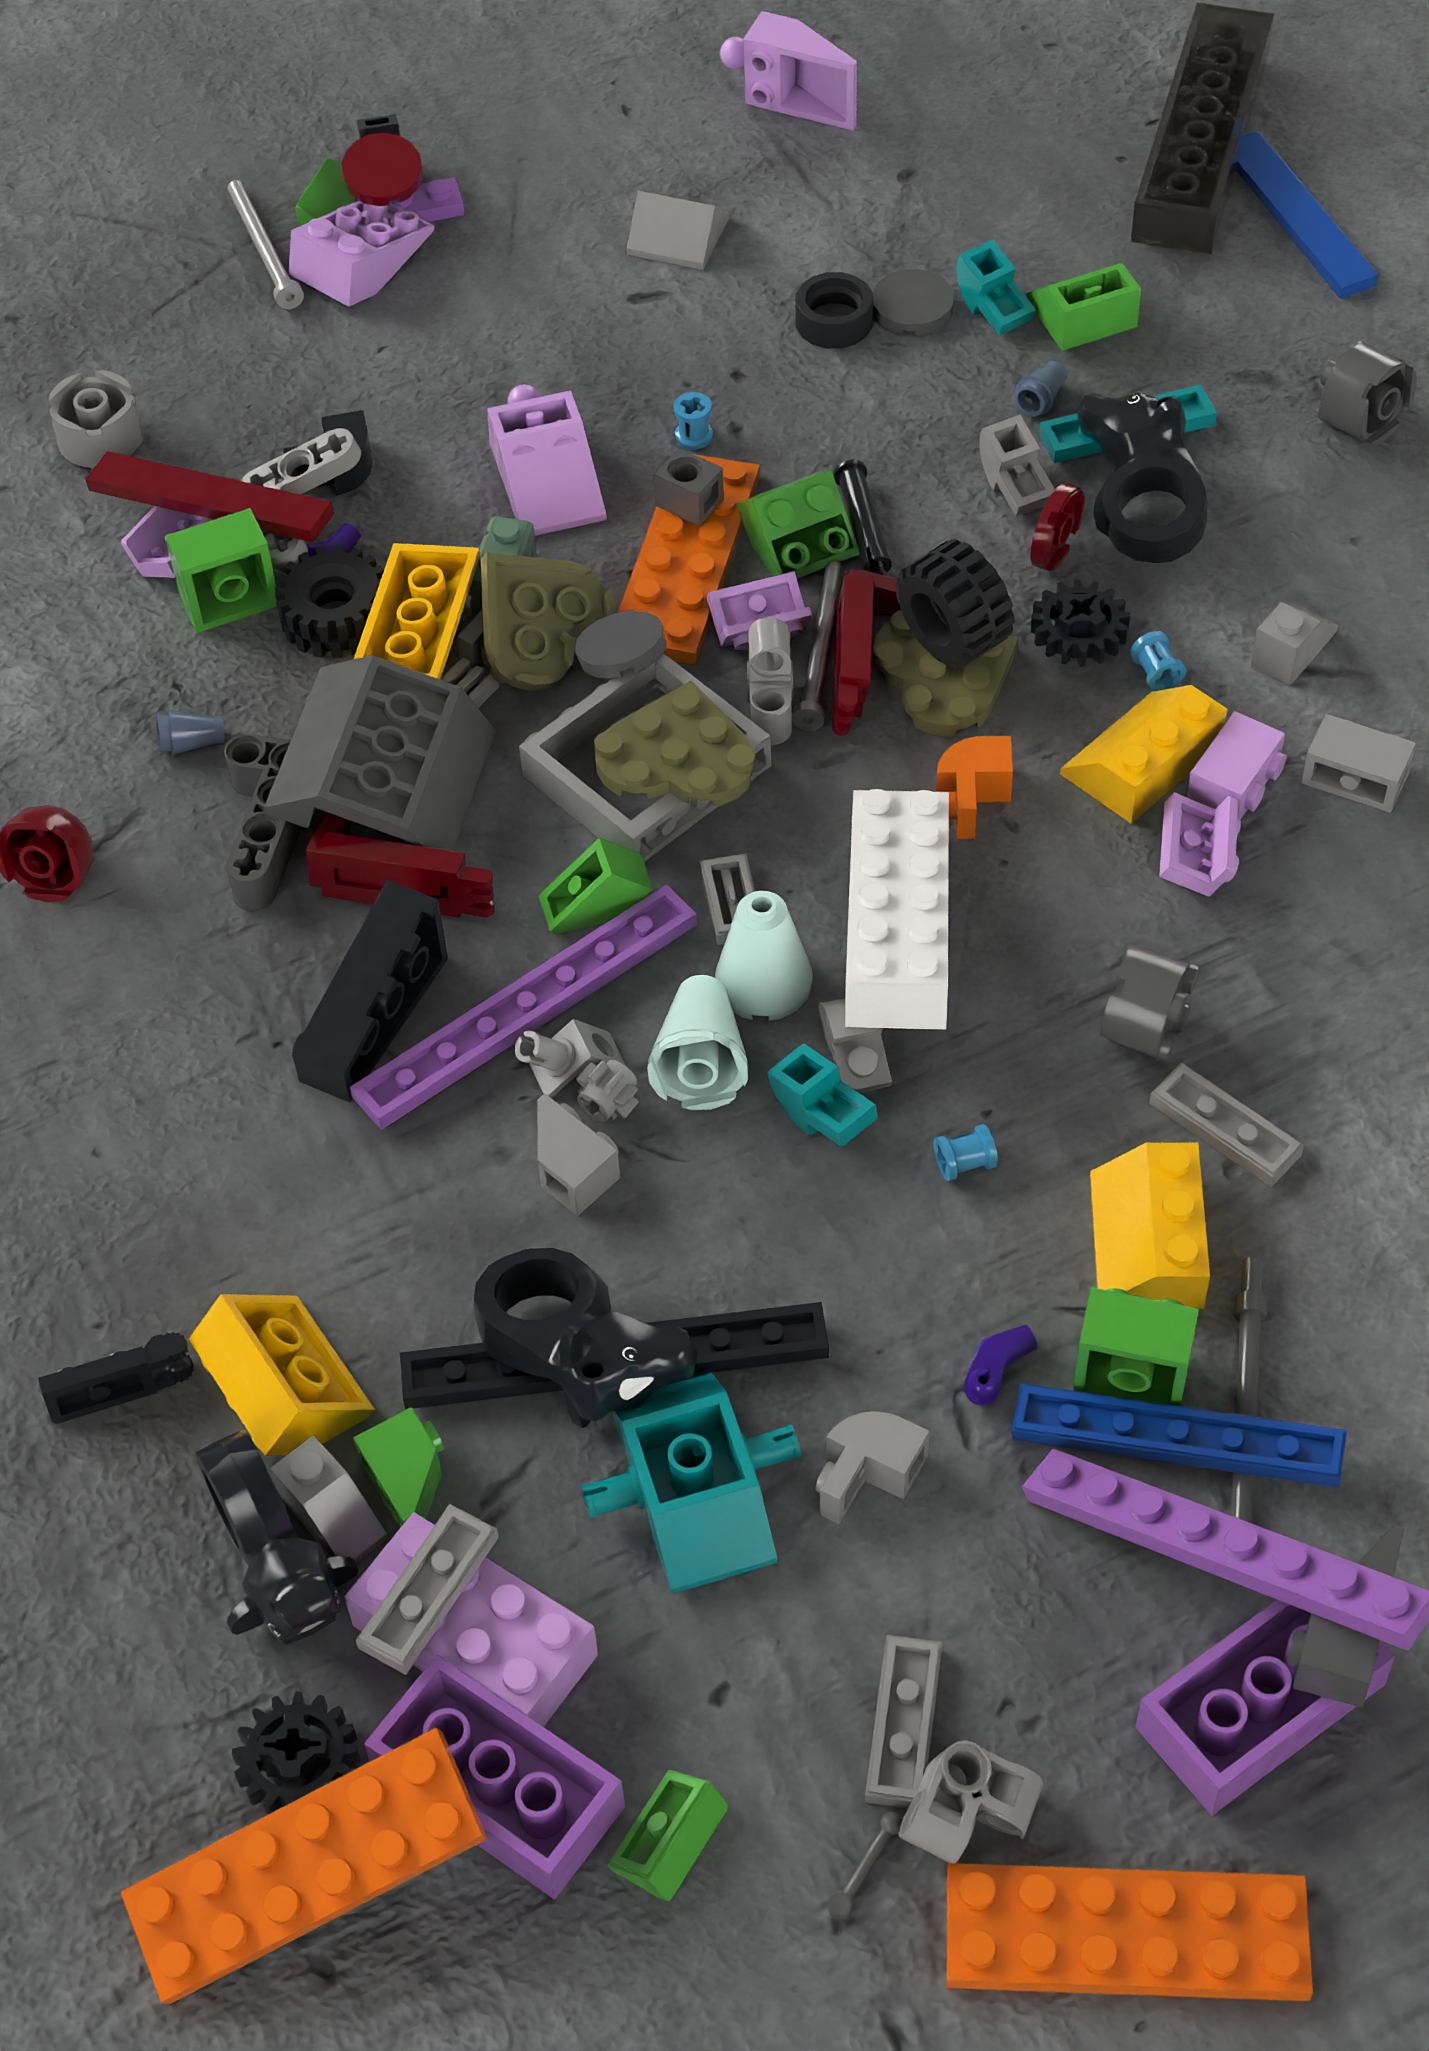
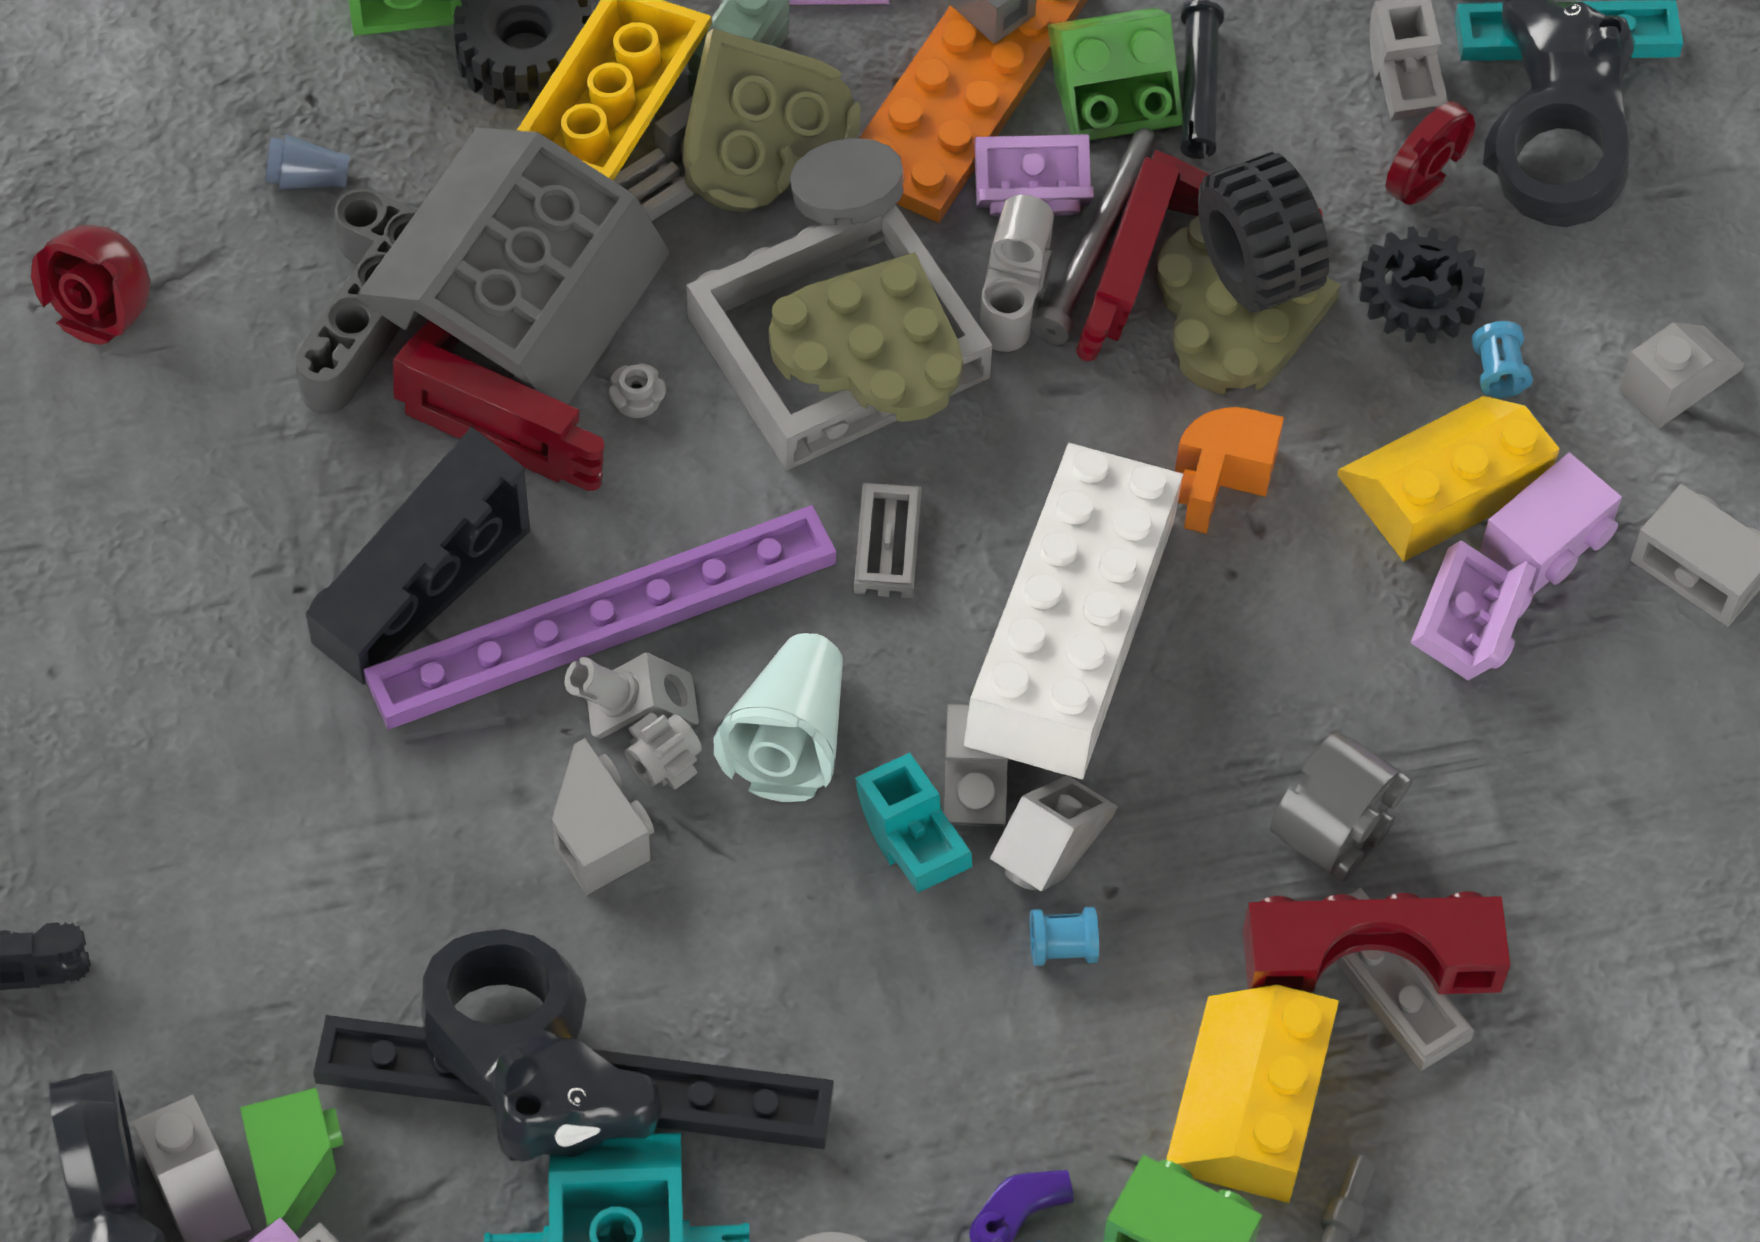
camera: 10 degrees right, 5 degrees up
(278, 1371) = (182, 1001): yellow slope -> none
(504, 843) = (641, 401): none -> light grey plate
(595, 887) = (727, 488): bright green slope -> none
(764, 960) = (897, 635): light aqua cone -> none
(930, 1080) = (1051, 832): none -> light grey slope
(1268, 1080) = (1451, 939): none -> dark red arch

